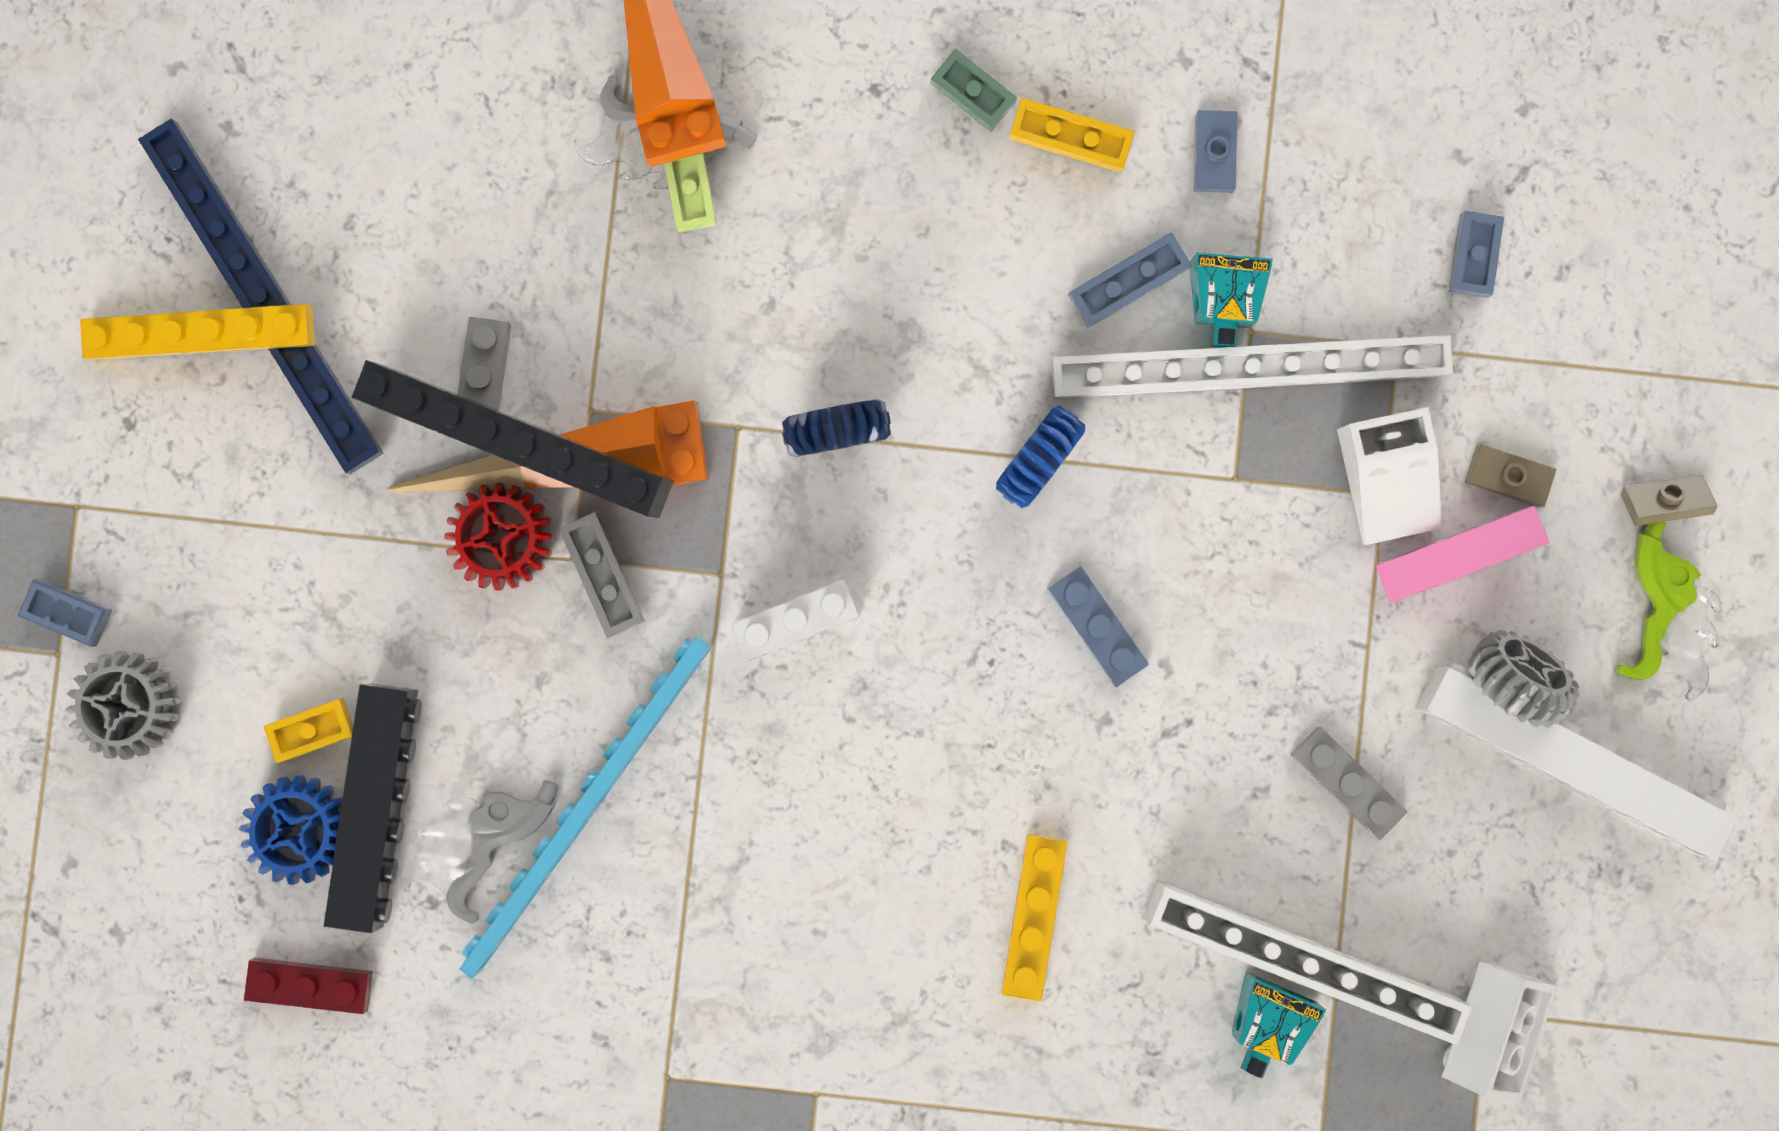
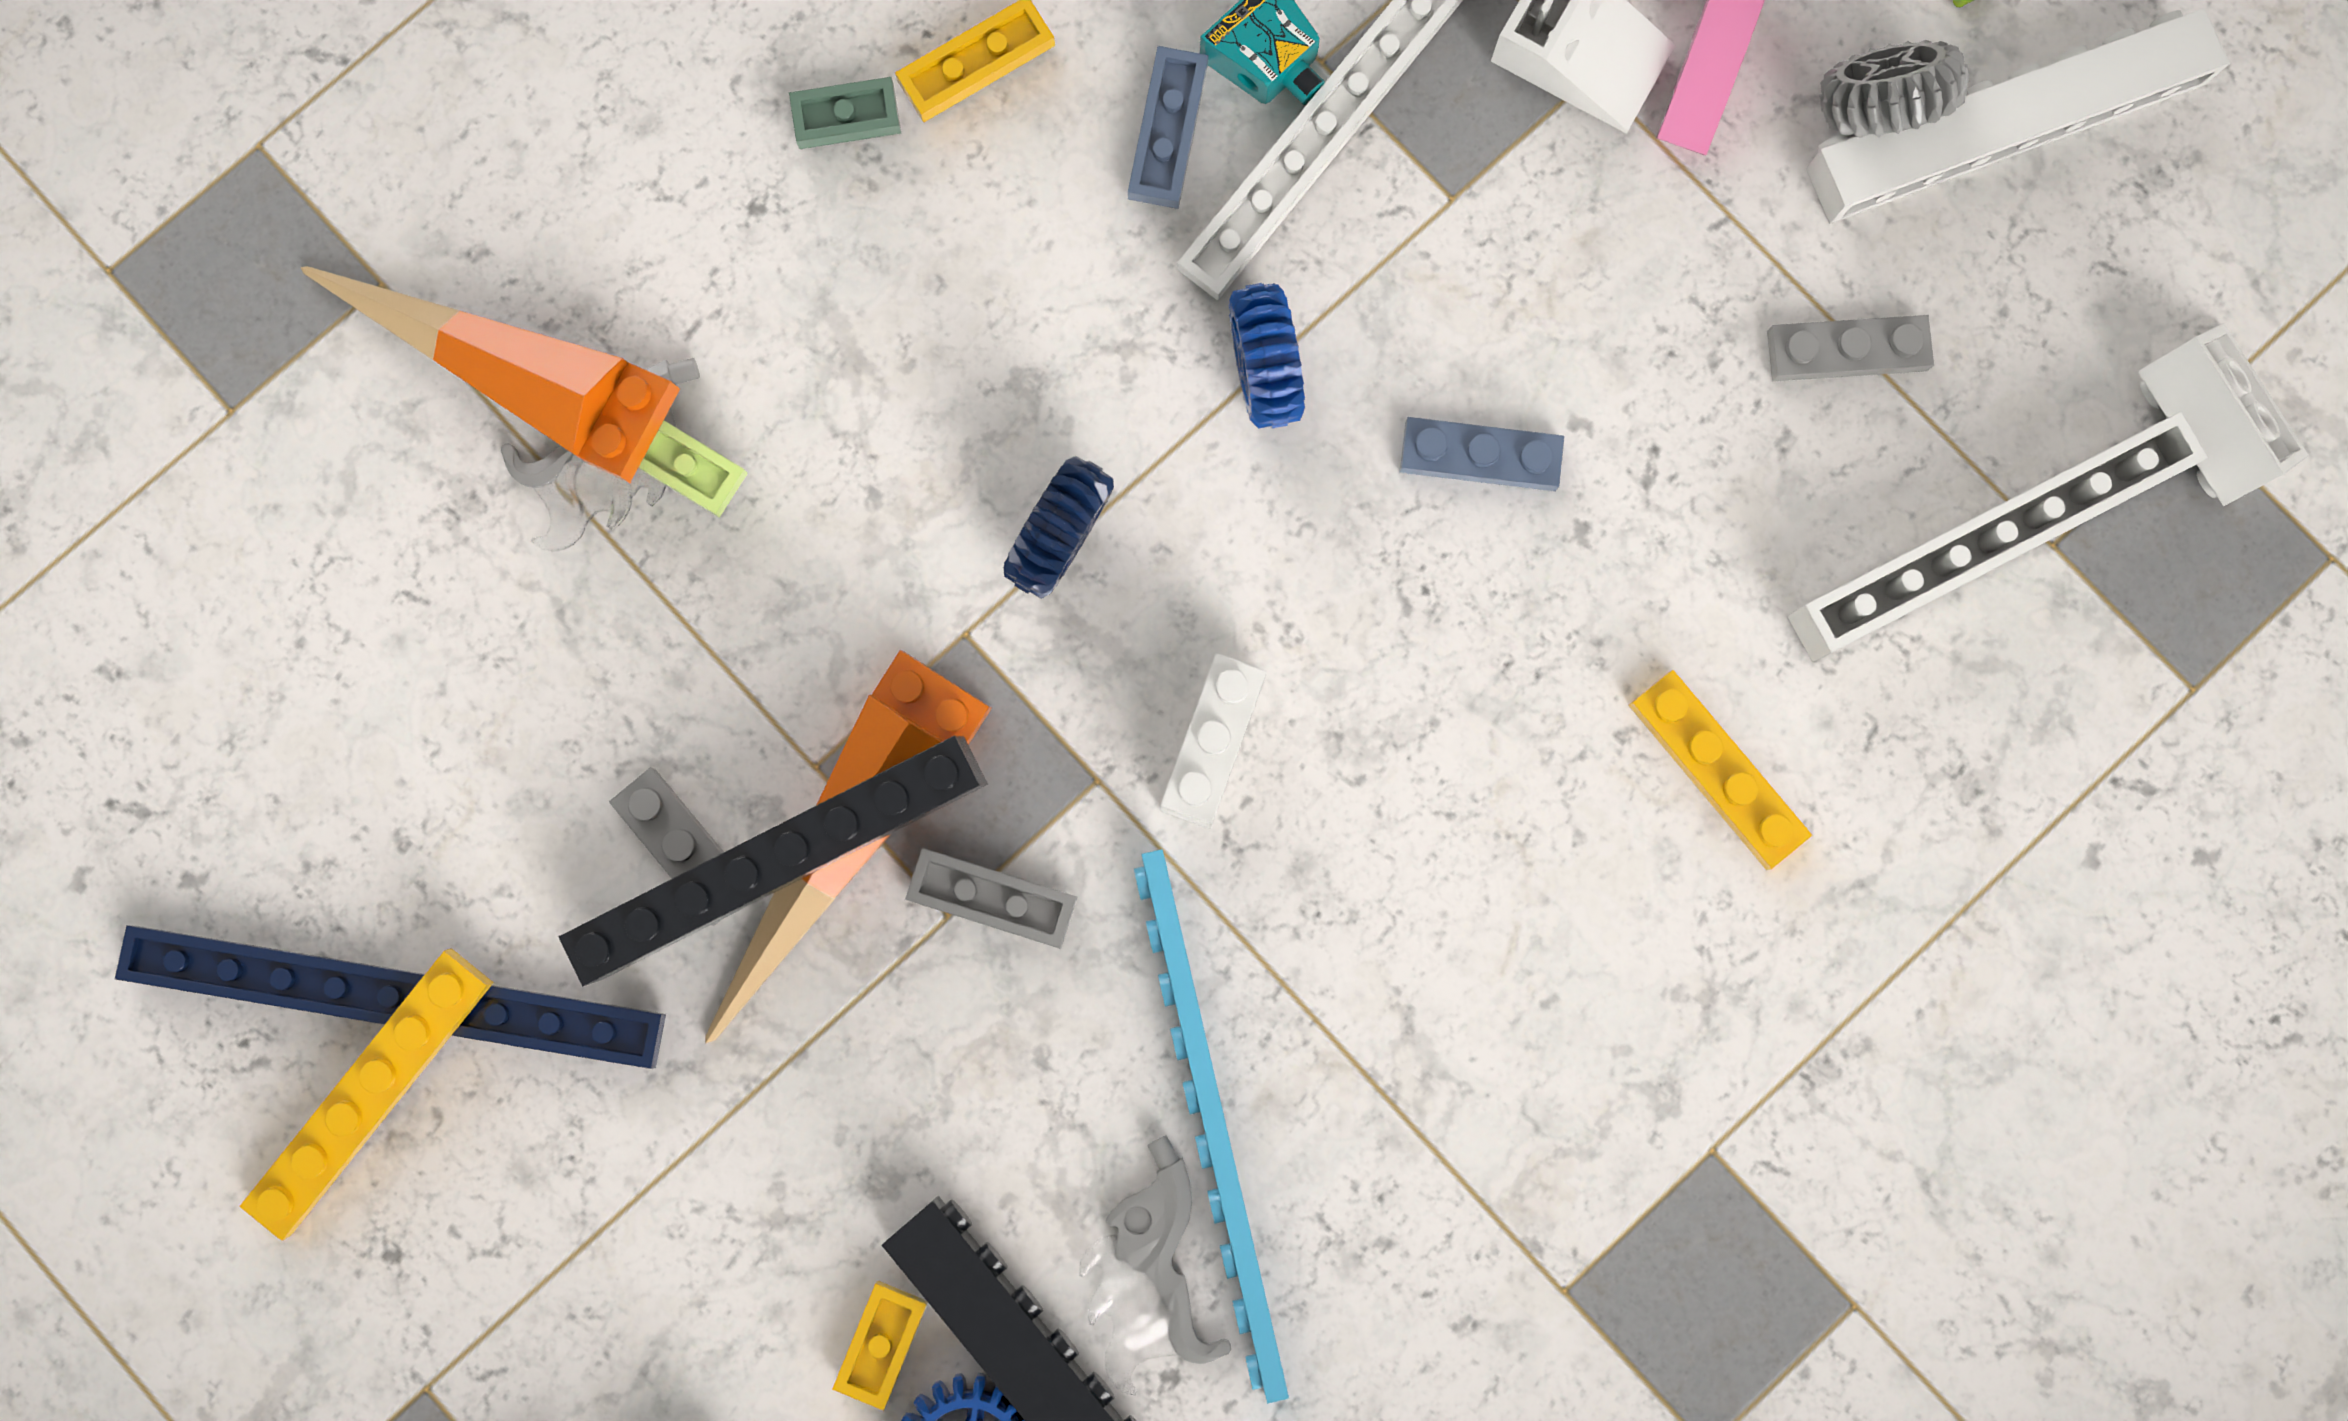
camera: 50 degrees left, 5 degrees down
(506, 554) = (847, 991): red gear -> none
(1272, 1023) = (2029, 625): teal torso -> none

